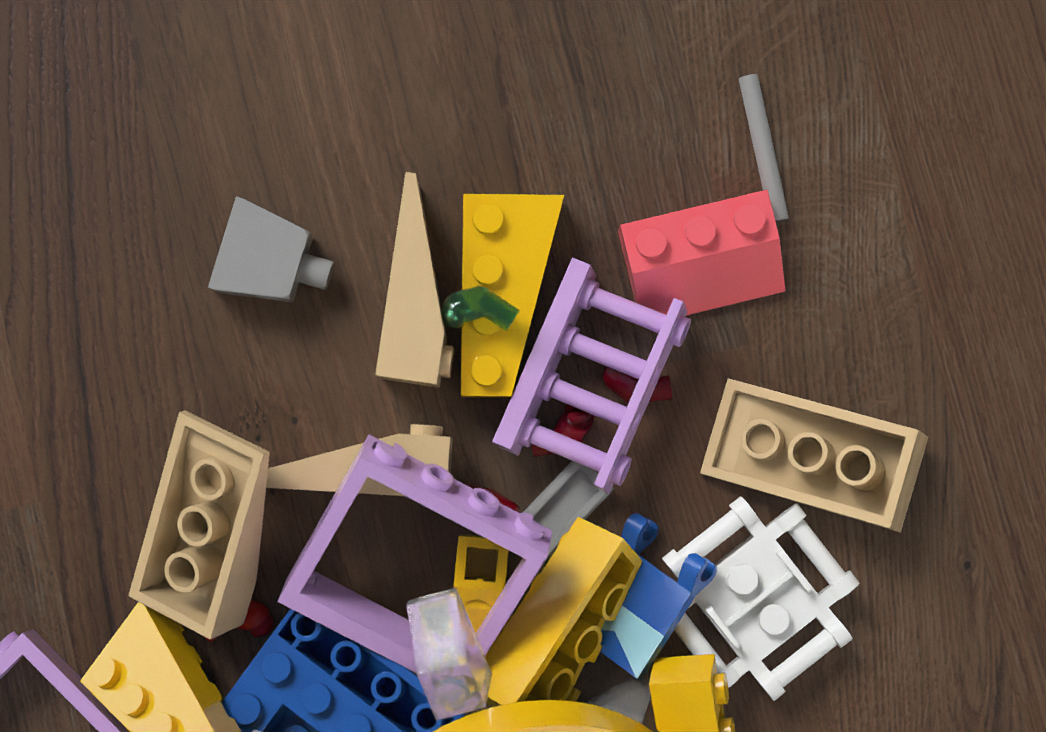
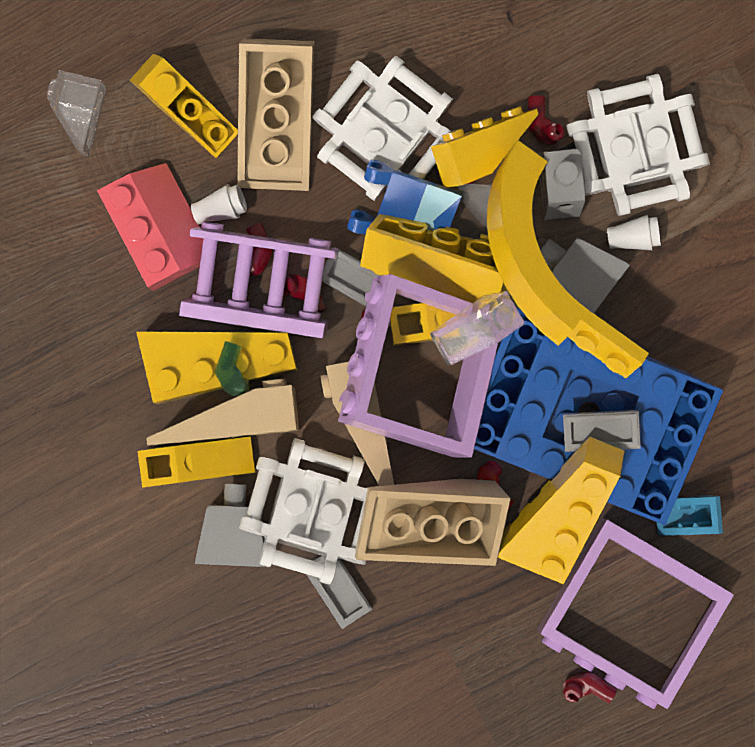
camera: 100 degrees left, 0 degrees up
(157, 376) = (342, 595): none -> light grey tile
(267, 363) = (307, 510): none -> white brick
(371, 229) = (196, 461): none -> yellow slope
(708, 351) = (220, 205): none -> white cone
(763, 144) = (64, 205): light grey bar -> none
(857, 335) = (184, 104): none -> yellow slope
(889, 190) = (77, 105): none -> clear slope

